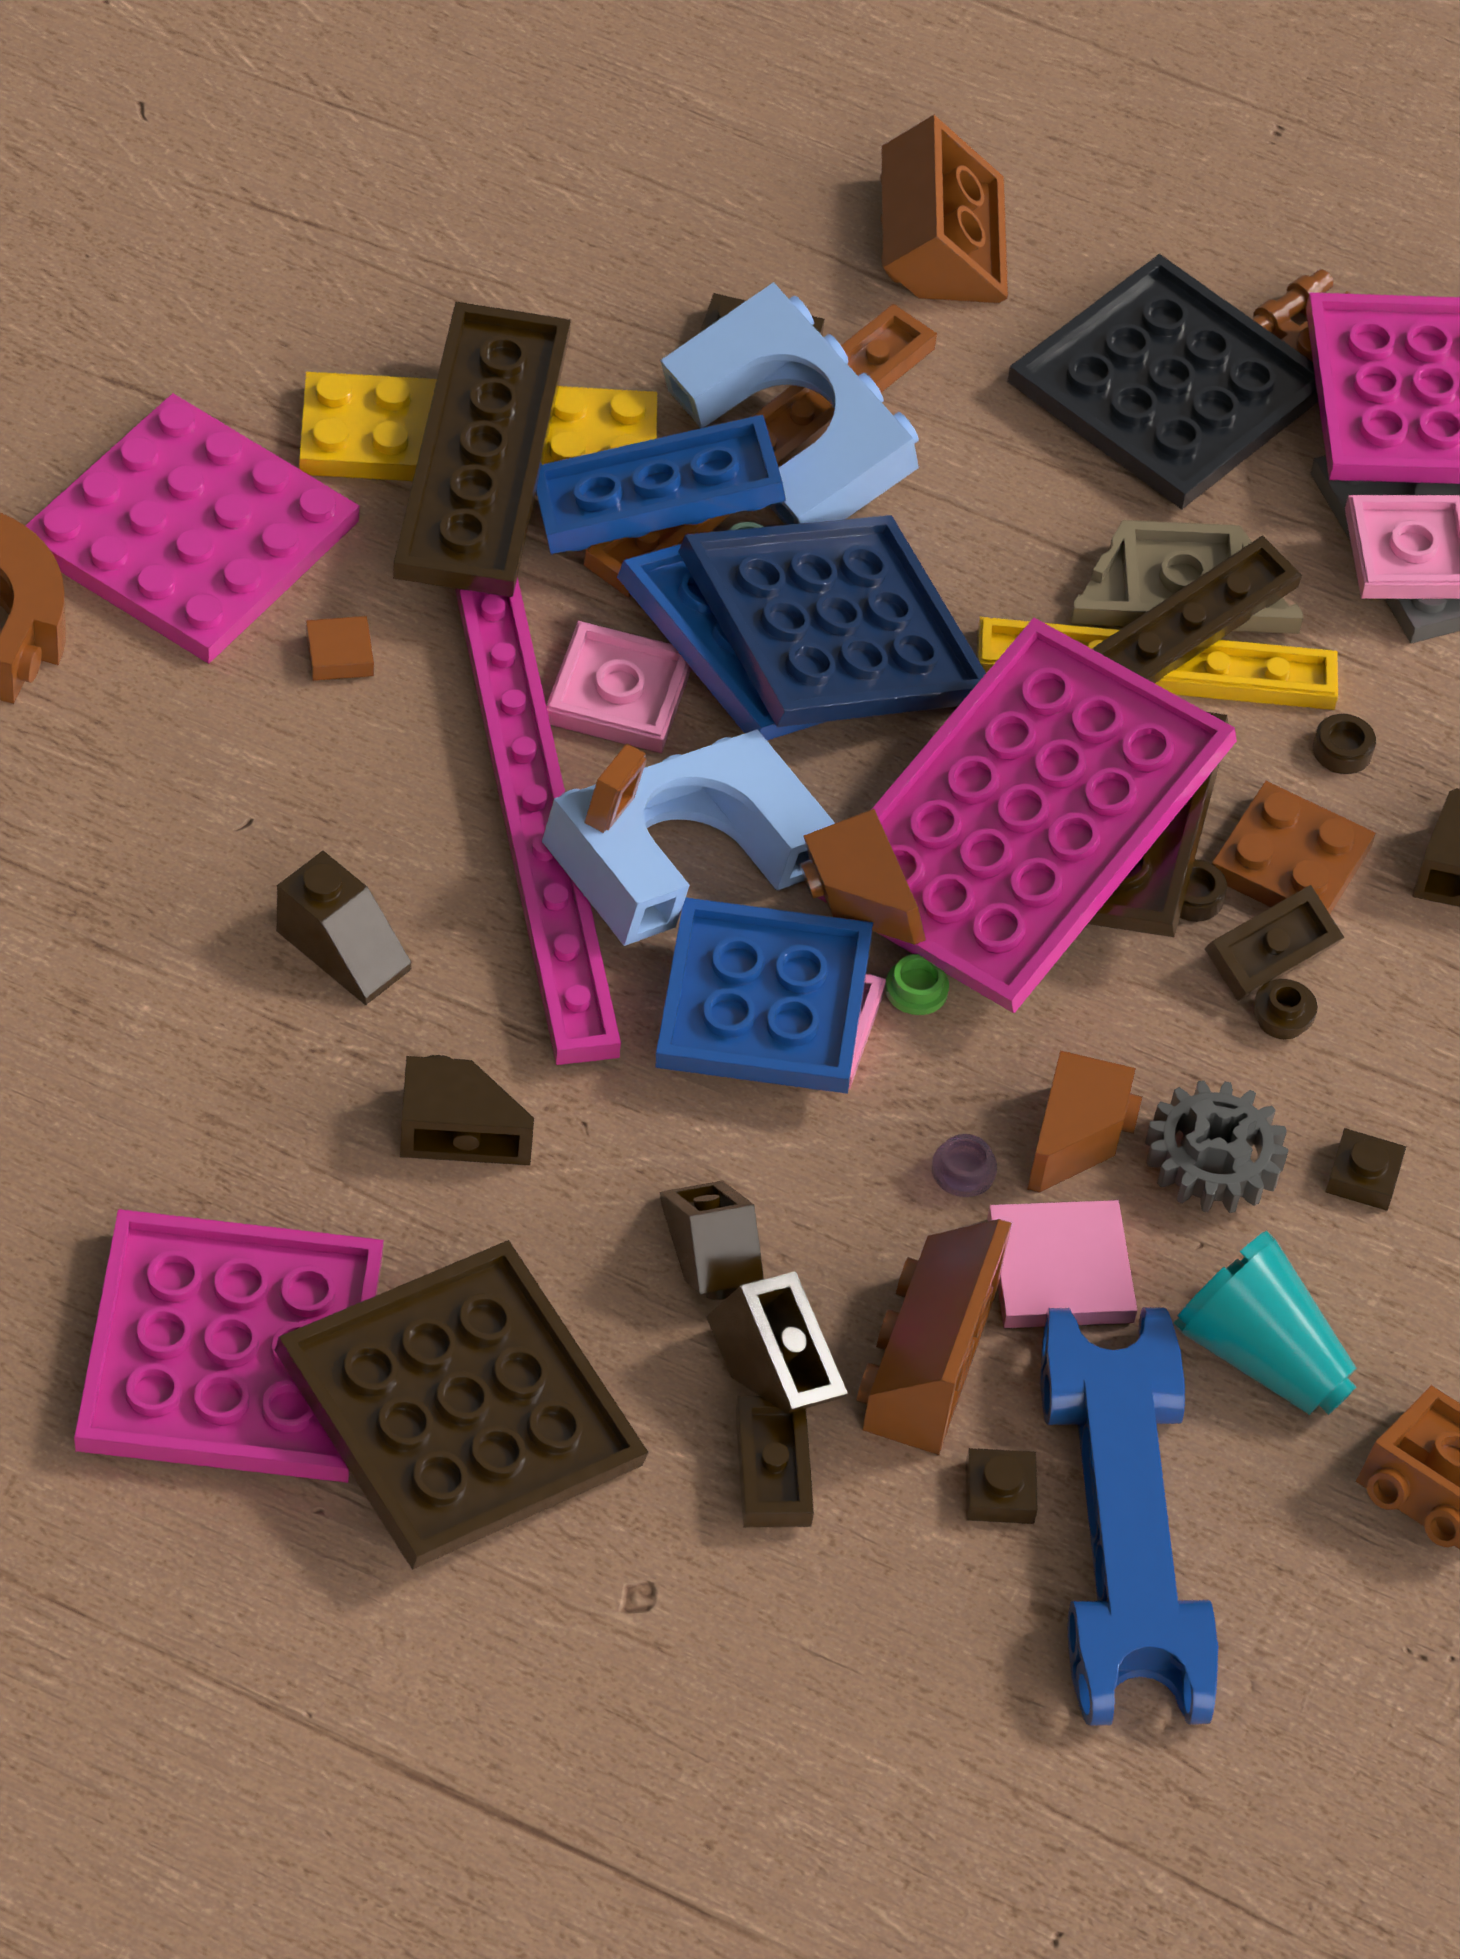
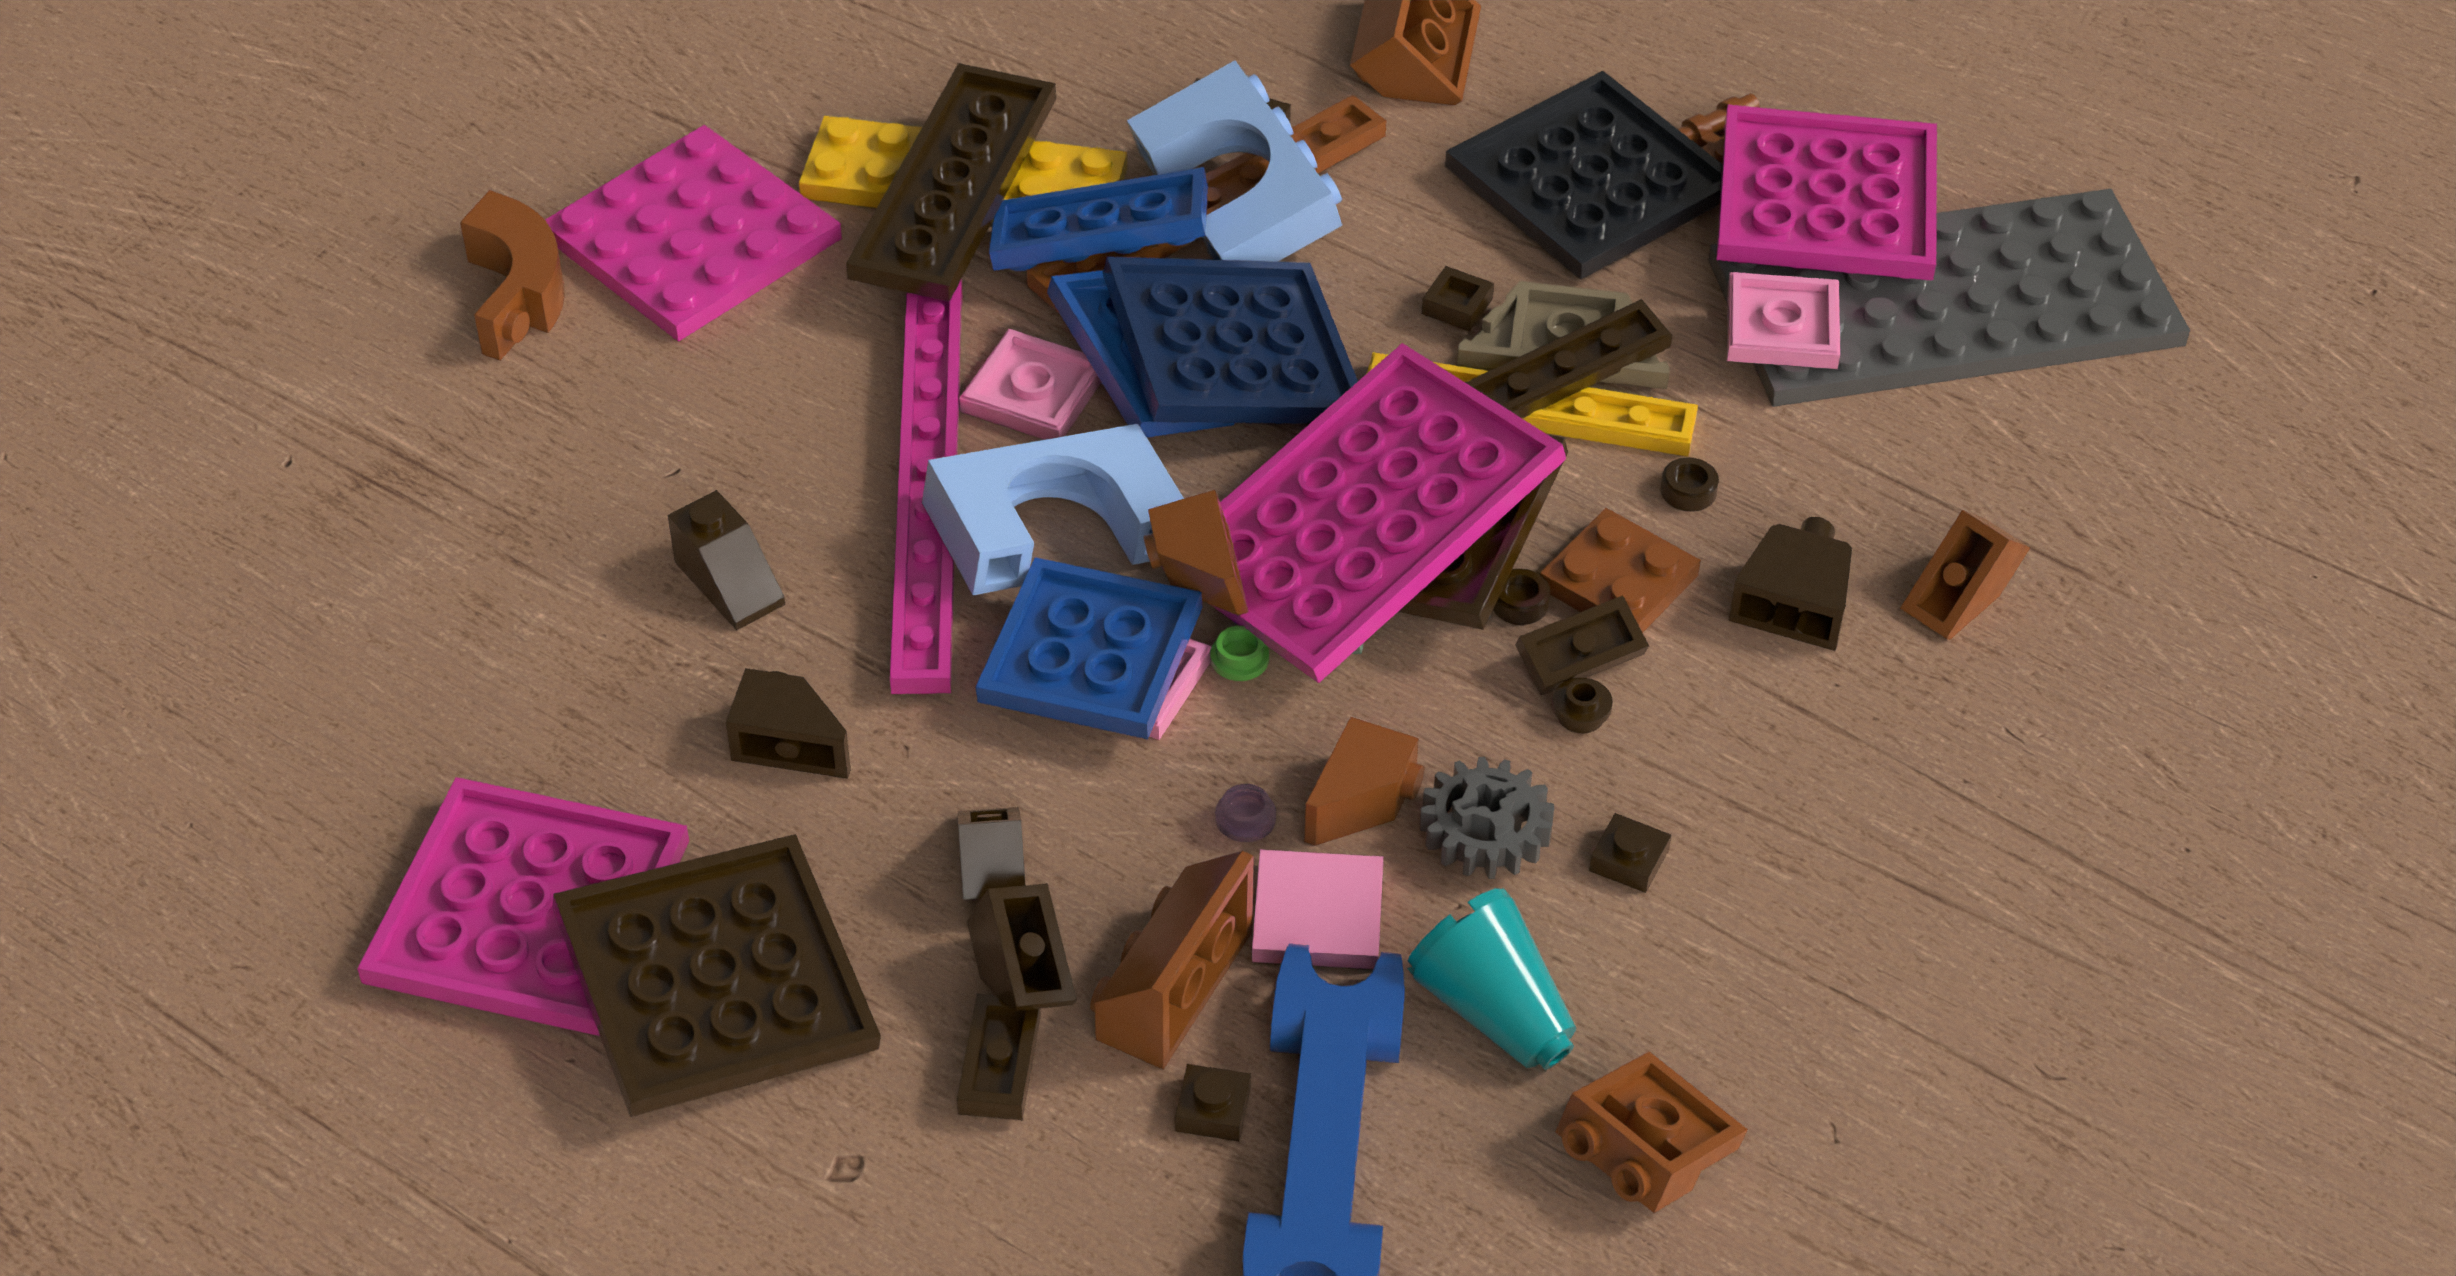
camera: 15 degrees right, 5 degrees down
(339, 648) = (793, 336): dark orange tile -> none
(615, 788) = (980, 452): dark orange tile -> none
(1058, 544) = (1457, 298): none -> dark brown plate

